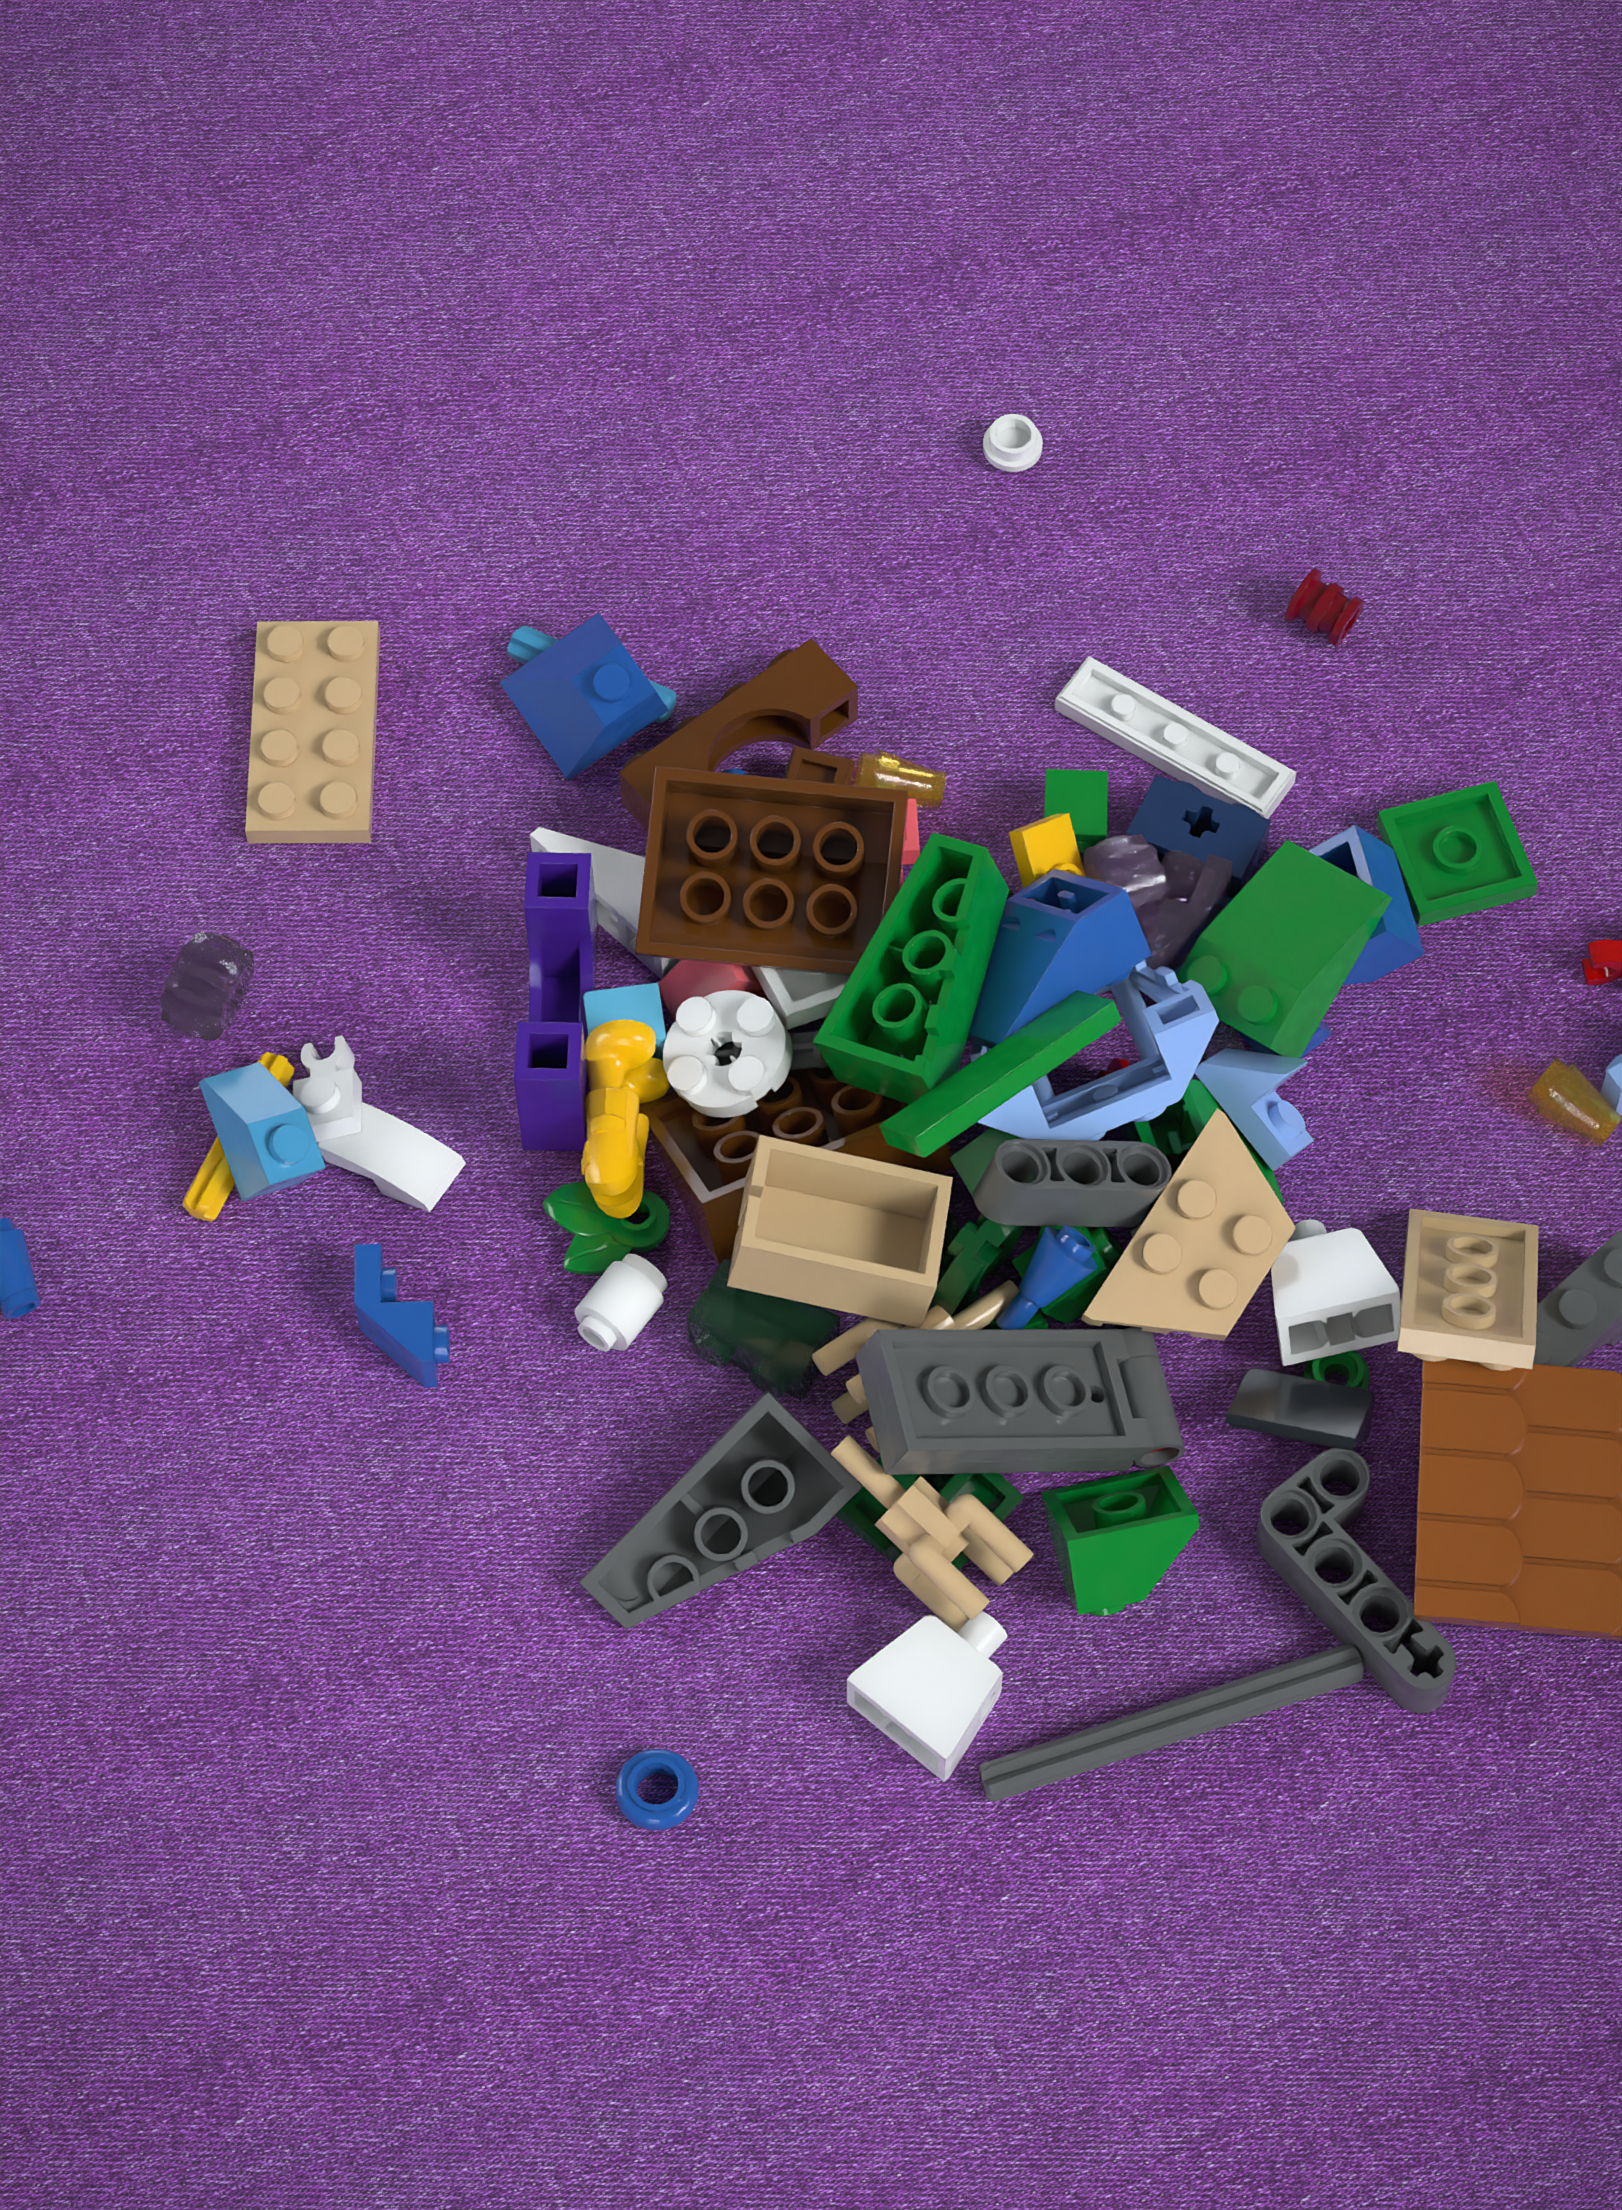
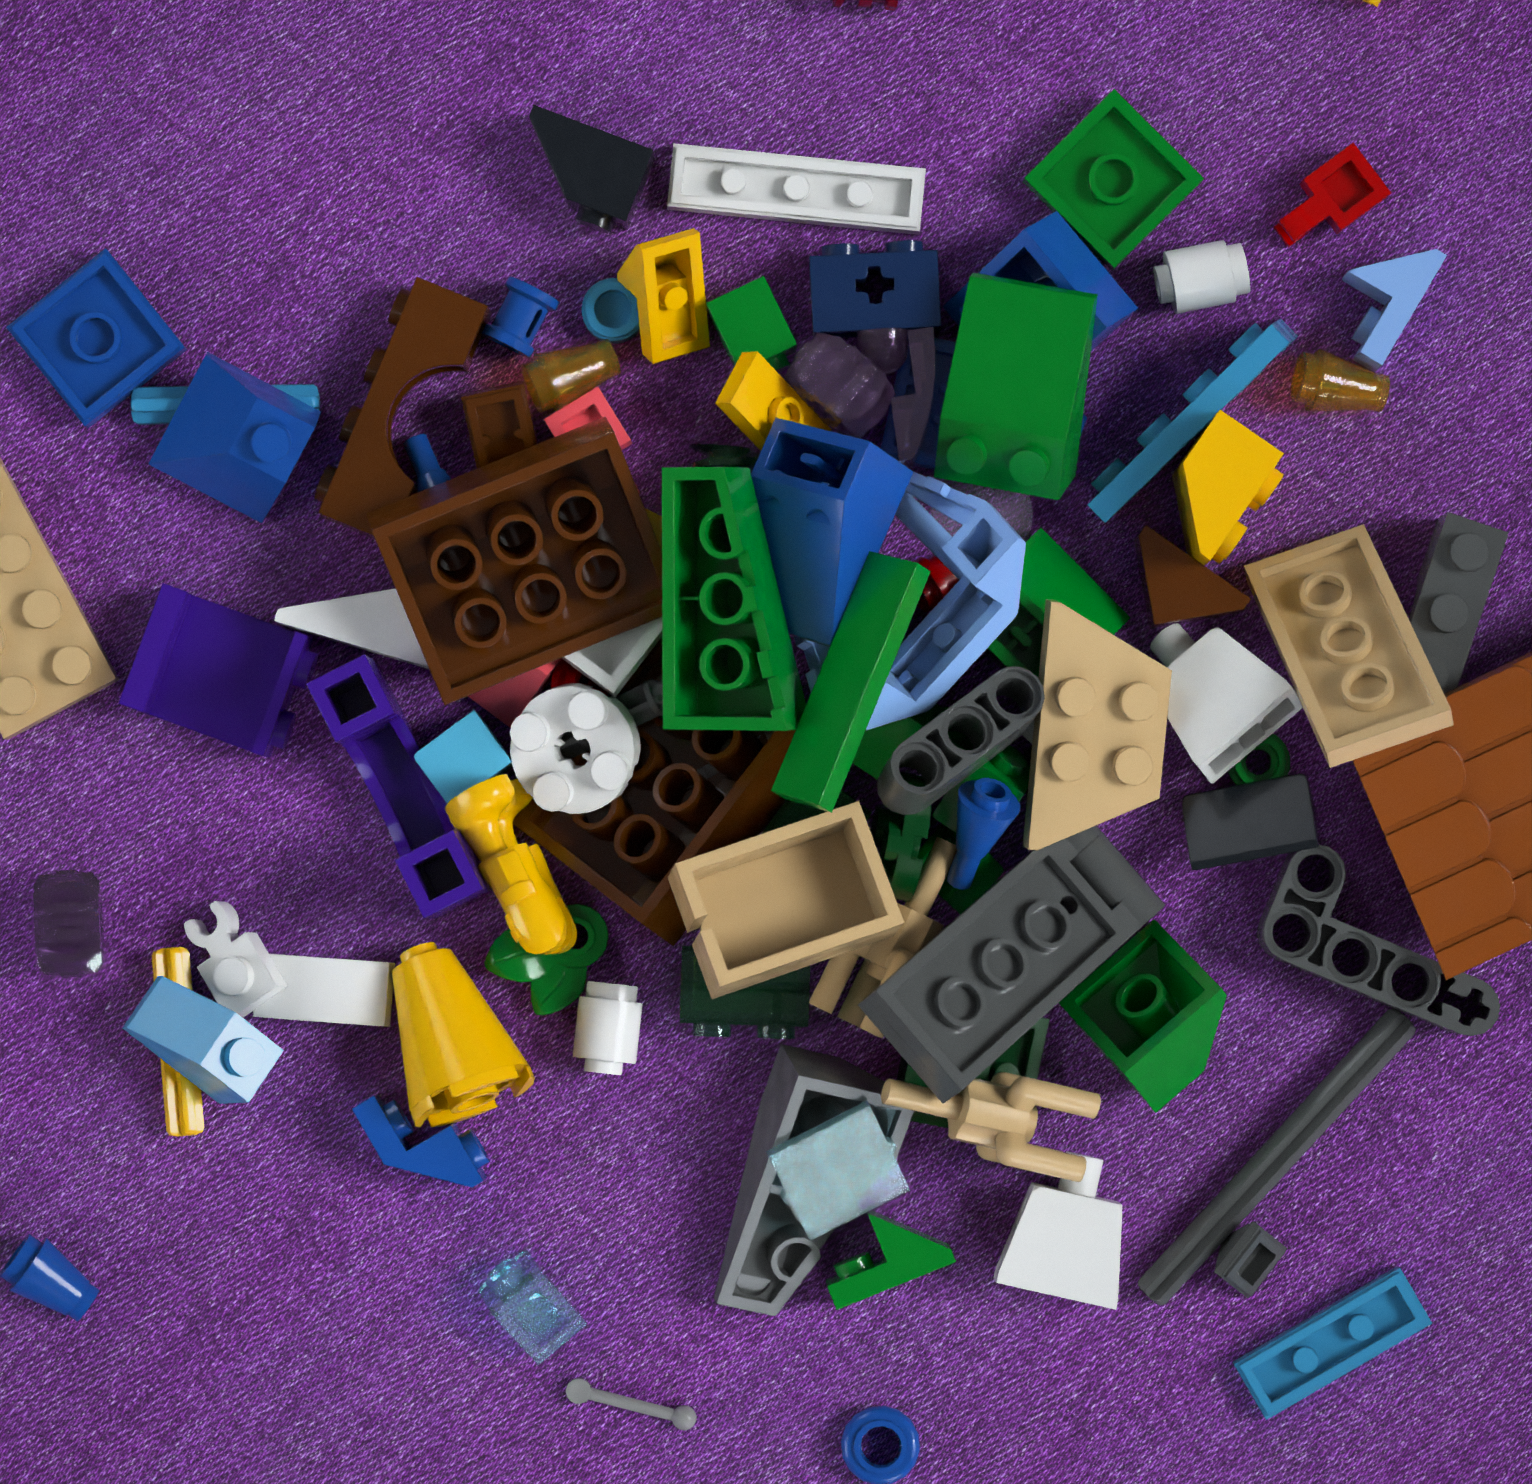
camera: 25 degrees left, 25 degrees up
(410, 1607) = (580, 1391): none -> light grey hinge
(411, 1503) = (530, 1306): none -> clear light blue bracket
(448, 864) = (219, 672): none -> dark purple panel
(475, 1247) = (451, 1040): none -> yellow cone
(516, 576) = (96, 338): none -> blue plate
(756, 1509) = (838, 1170): none -> clear light blue piece
(773, 1631) = (906, 1257): none -> green slope
(880, 719) = (520, 317): none -> blue bush
(965, 758) = (610, 311): none -> dark azure tile
(1012, 640) = (594, 169): none -> black slope
(1019, 750) = (669, 294): none -> yellow slope
(1097, 1796) = (1248, 1258): none -> dark grey slope
(1136, 1917) = (1332, 1342): none -> dark azure tile
(1246, 1089) = (1066, 543): light blue slope -> none
(1346, 1193) = (1179, 586): none -> reddish brown slope
(1425, 1060) = (1206, 397): none -> dark azure wing
(1427, 1116) = (1218, 481): none -> yellow slope
(1495, 959) = (1202, 276): none -> white brick

